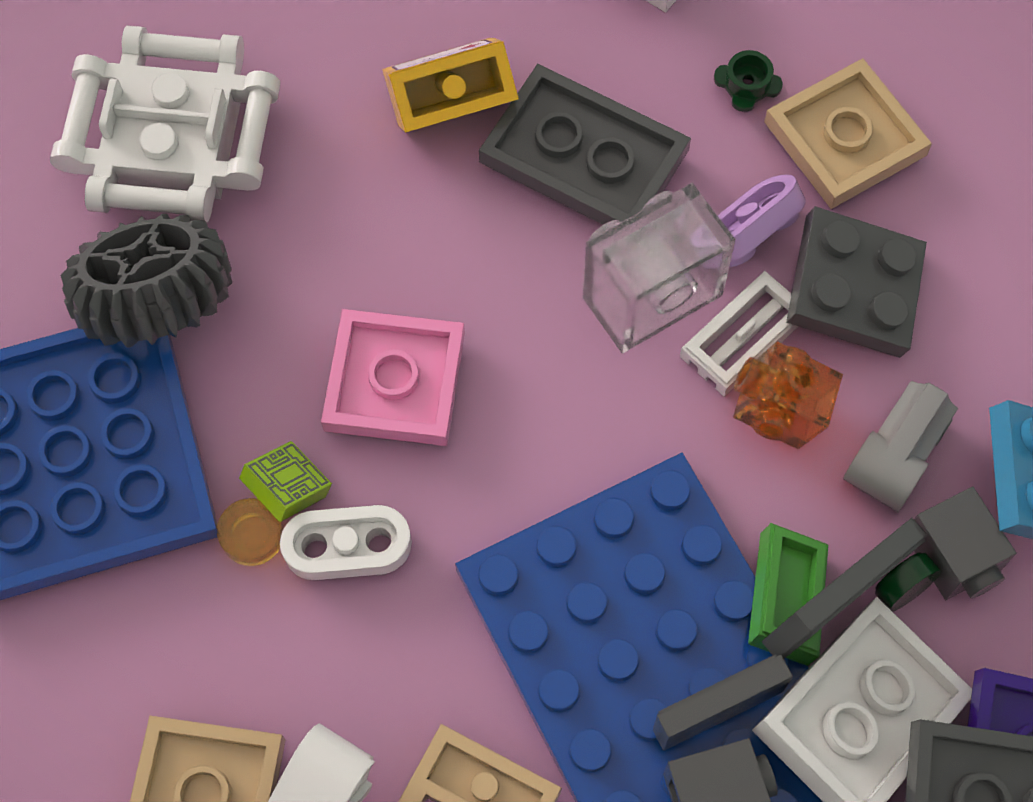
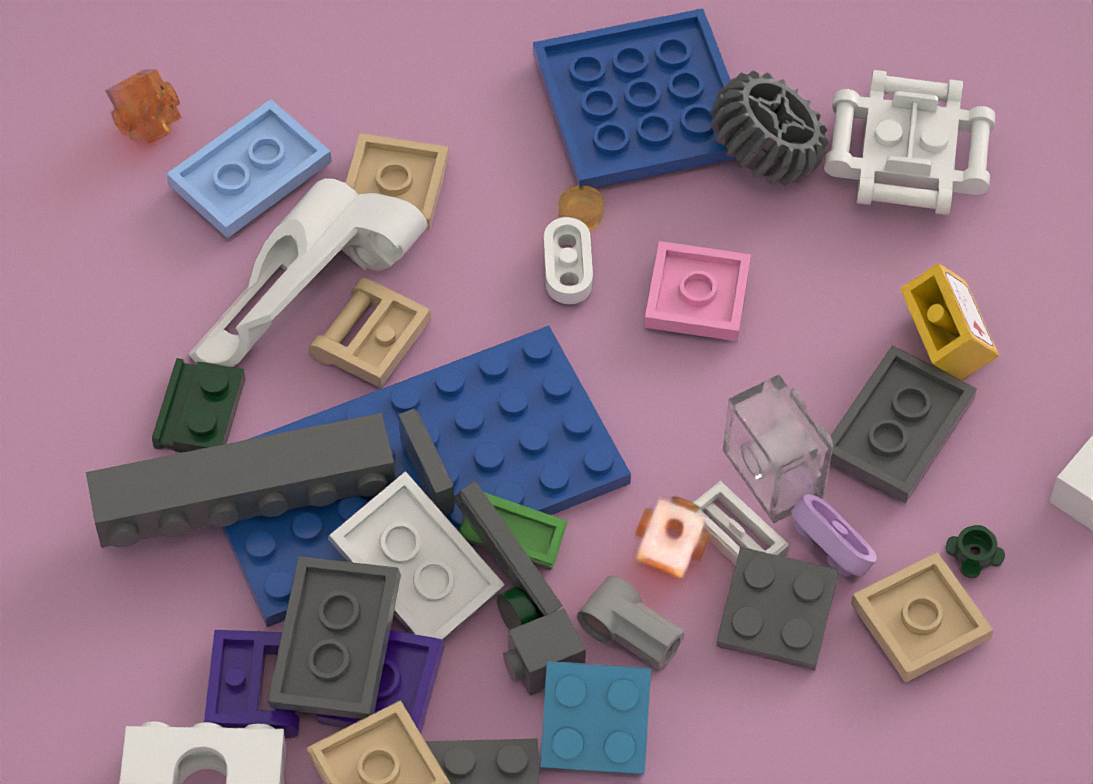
camera: 90 degrees right, 10 degrees down
(285, 481) = (616, 224): lime tile -> none

